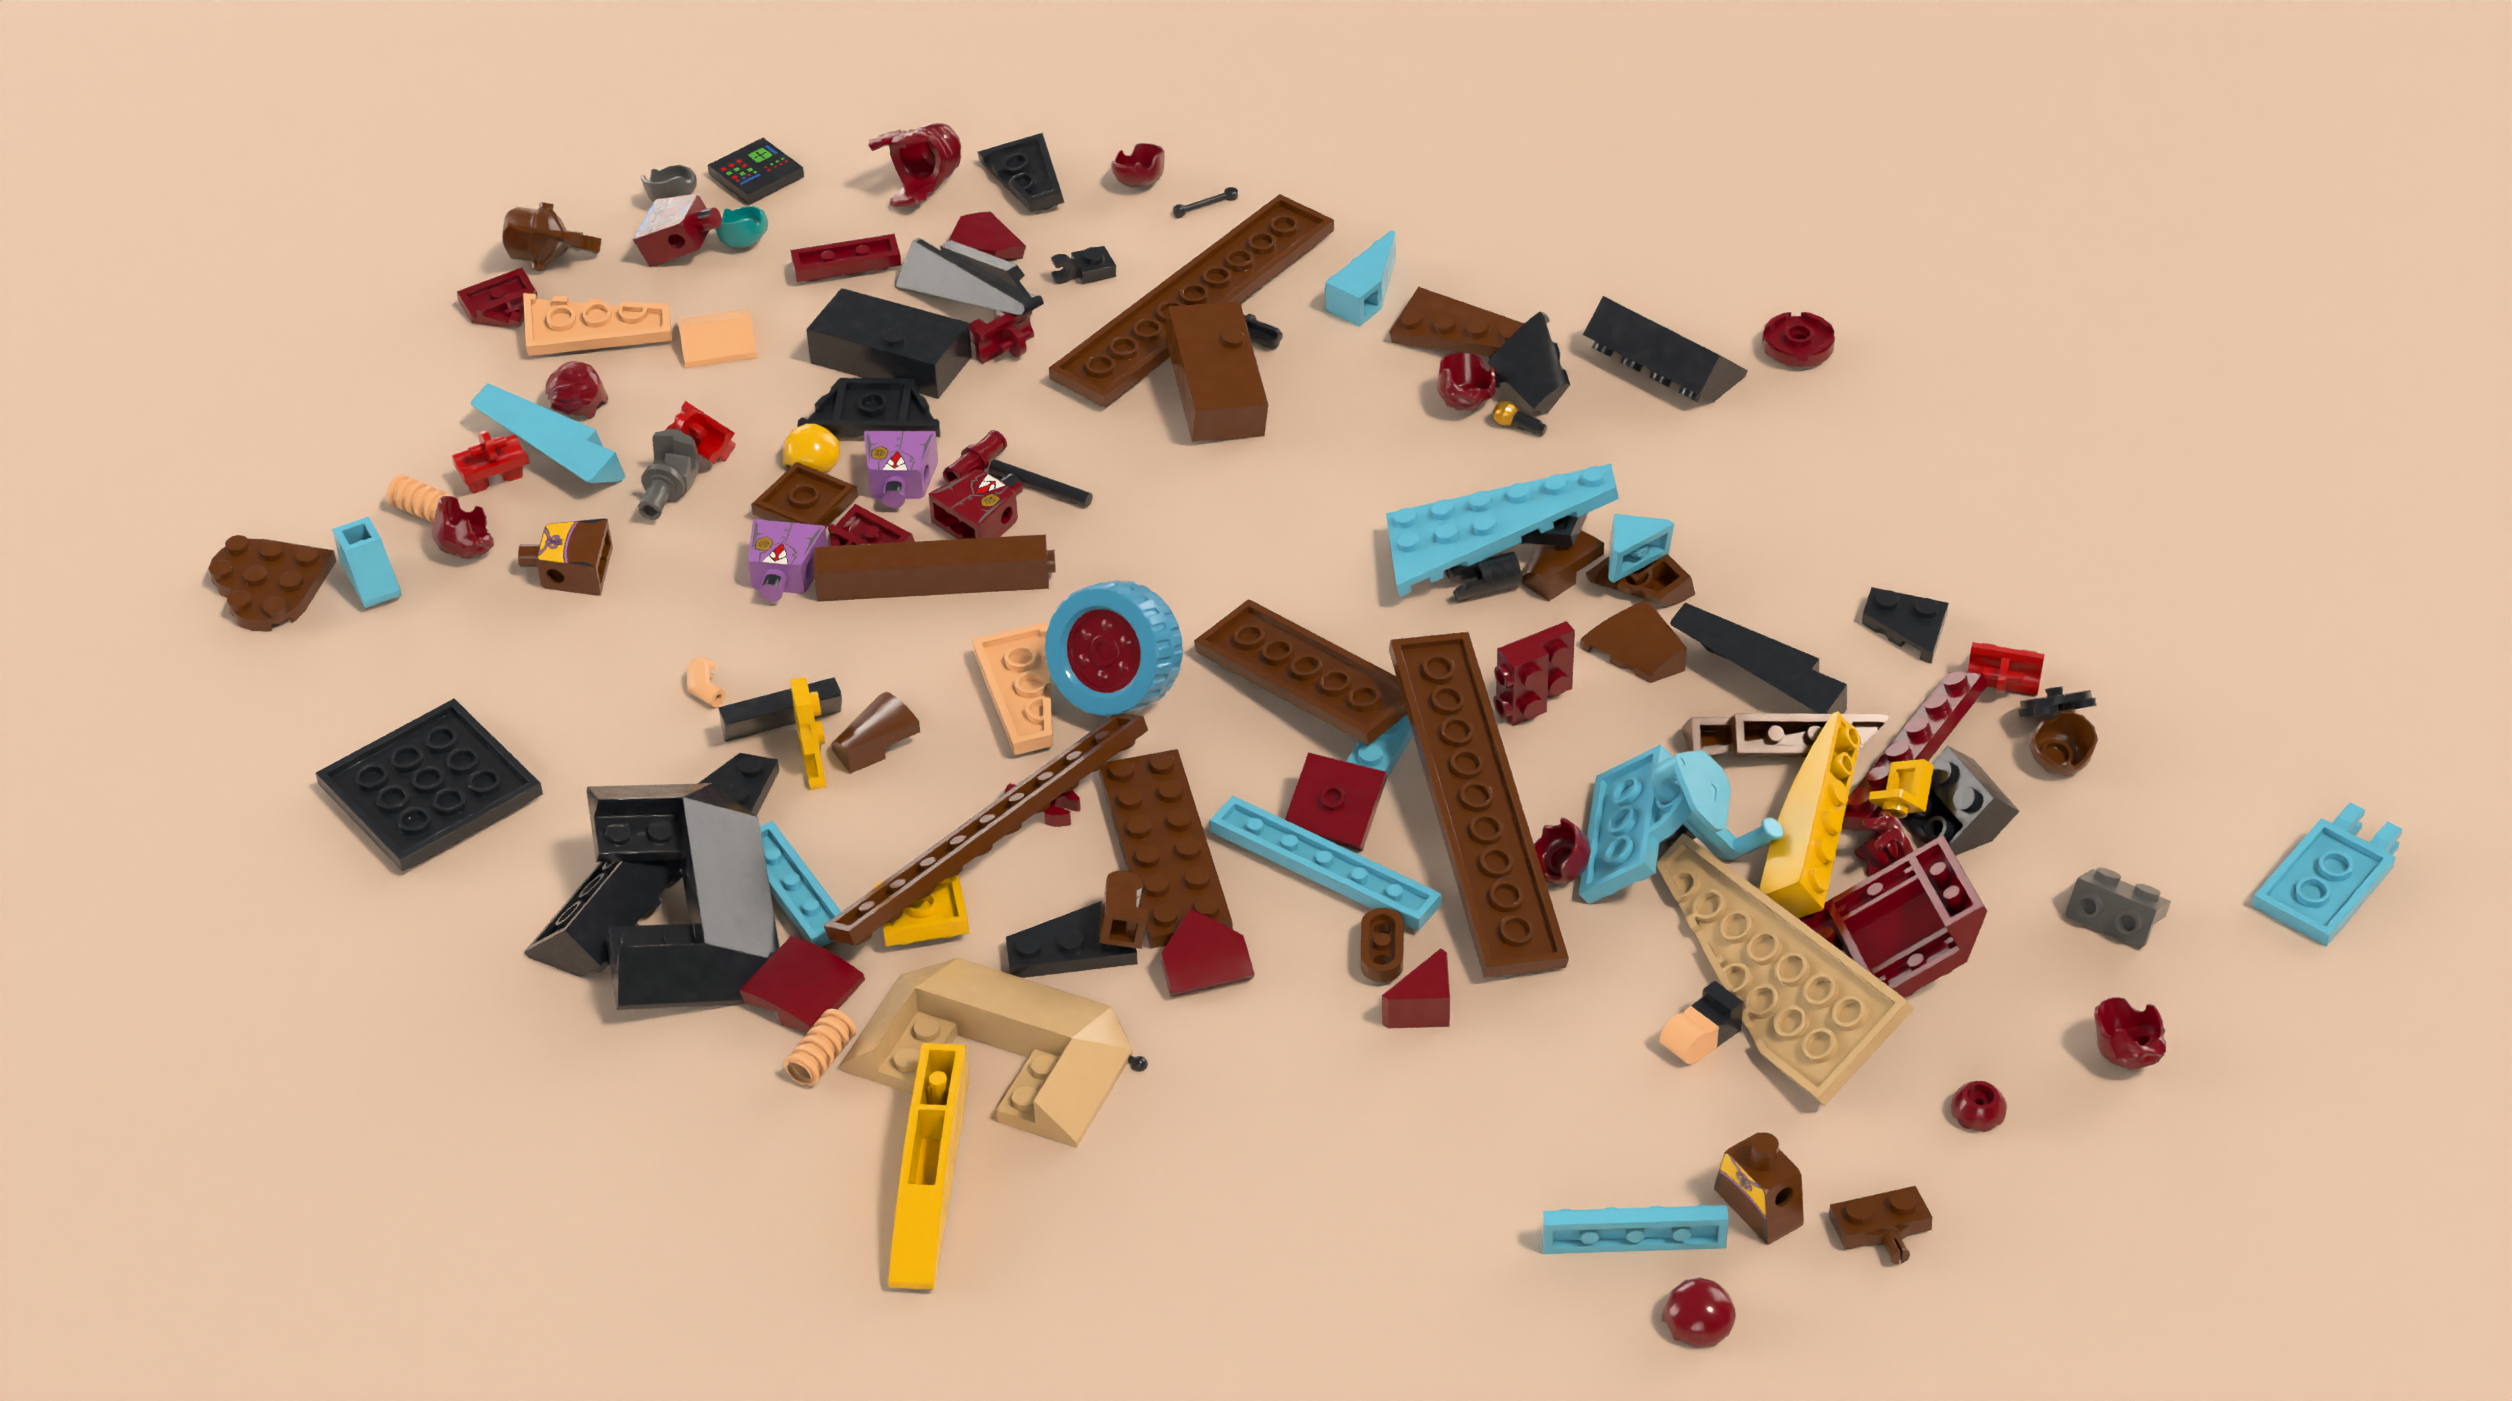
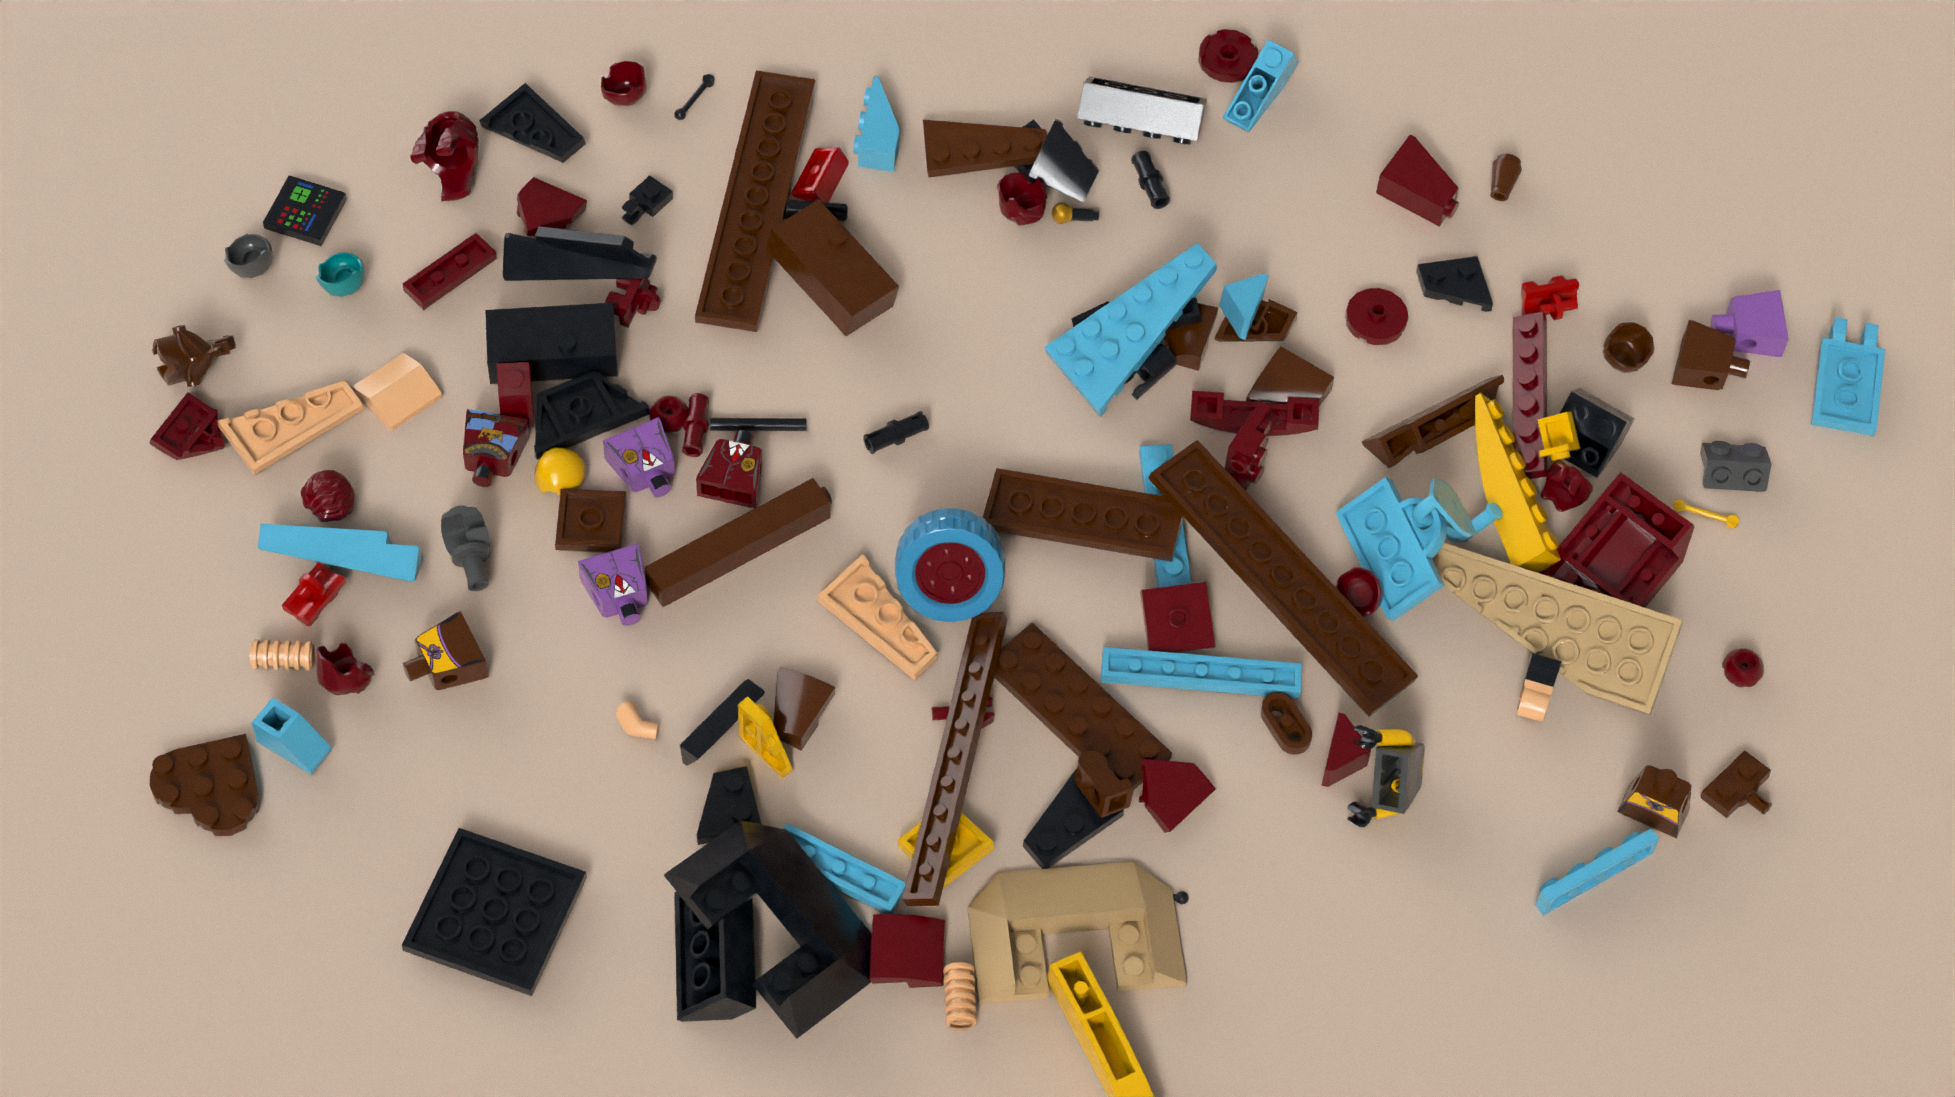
camera: 35 degrees left, 15 degrees up
(675, 228) = (293, 300): dark red torso -> none
(710, 436) = (461, 491): red hips -> none
(764, 404) = (492, 444): none -> torso
(813, 363) = (515, 390): none -> dark red slope
(865, 527) = (662, 532): dark red slope -> none
(955, 438) = (670, 422): none -> dark red plate
(1172, 535) = (896, 432): none -> black pin
(1283, 302) = (821, 175): none -> red slope
(1459, 1028) = (1396, 773): none -> torso
(1590, 666) = (1213, 411): none -> dark red slope
(1624, 415) = (1150, 179): none -> black pin
(1699, 1312) = (1672, 913): dark red hair -> none
(1768, 659) = (1392, 363): black wedge -> none
(1789, 617) = (1376, 328): none -> dark red plate
(1817, 373) = (1261, 85): none -> medium azure slope
(1926, 513) = (1418, 183): none -> dark red slope
(2038, 542) = (1505, 173): none -> reddish brown cone
(2056, 701) = (1603, 314): black piece -> none
(2076, 960) = (1730, 521): none -> yellow hinge
(2129, 1035) = (1809, 570): dark red hair -> none
(2156, 789) = (1707, 358): none -> reddish brown torso
(2243, 777) = (1755, 323): none -> medium lavender torso

